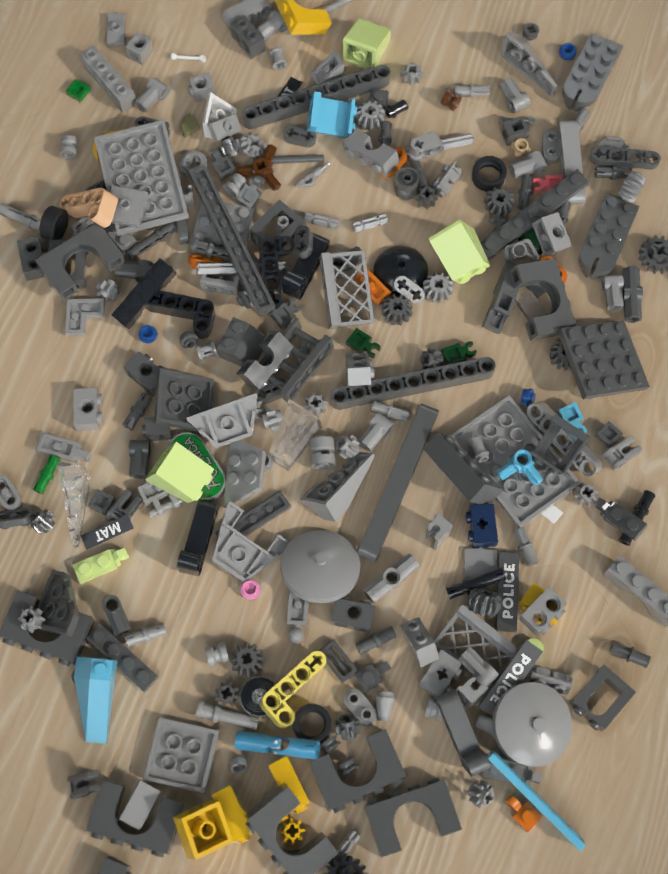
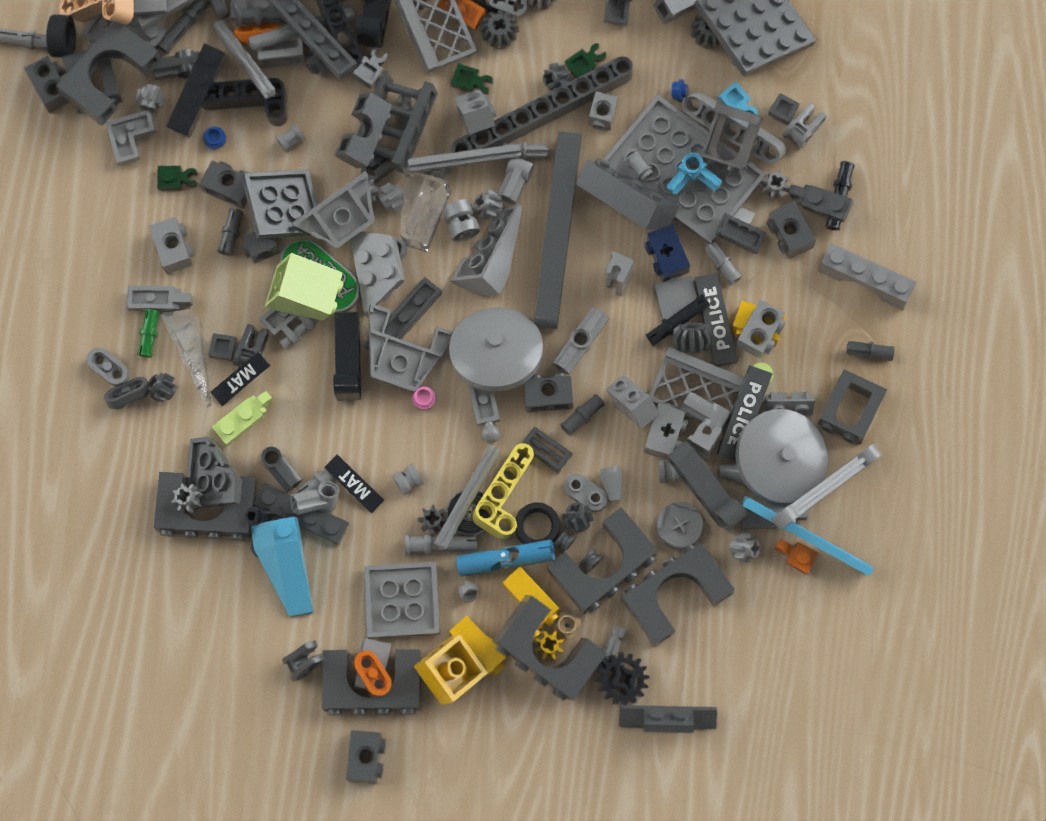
camera: 10 degrees left, 5 degrees up
(83, 649) = (256, 515): none -> black pin
(105, 356) = (172, 177): none -> dark green plate
(136, 649) = (322, 499): none -> light grey piece
(136, 813) = (373, 673): none -> orange plate
(139, 452) = (249, 280): dark grey piece -> none
(172, 645) = (354, 483): none -> black sticker
(188, 339) = (264, 131): dark grey plate -> none
(189, 279) = (244, 59): none -> light grey axle
(236, 708) = (467, 497): none -> light grey axle
(239, 662) = (435, 480): dark grey gear -> none
(240, 343) = (328, 118): dark grey slope -> none
(306, 817) = (560, 626): none -> tan plate
(339, 403) = (464, 158): none -> light grey axle
(370, 677) = (588, 456): dark grey plate -> none
(431, 758) = (679, 525): none -> light grey tile
(463, 389) = (603, 102): none -> light grey brick
(529, 777) = (827, 486): none -> light grey piece
(546, 526) = (740, 233): none -> dark grey plate
(589, 523) = (791, 216): none -> dark grey brick

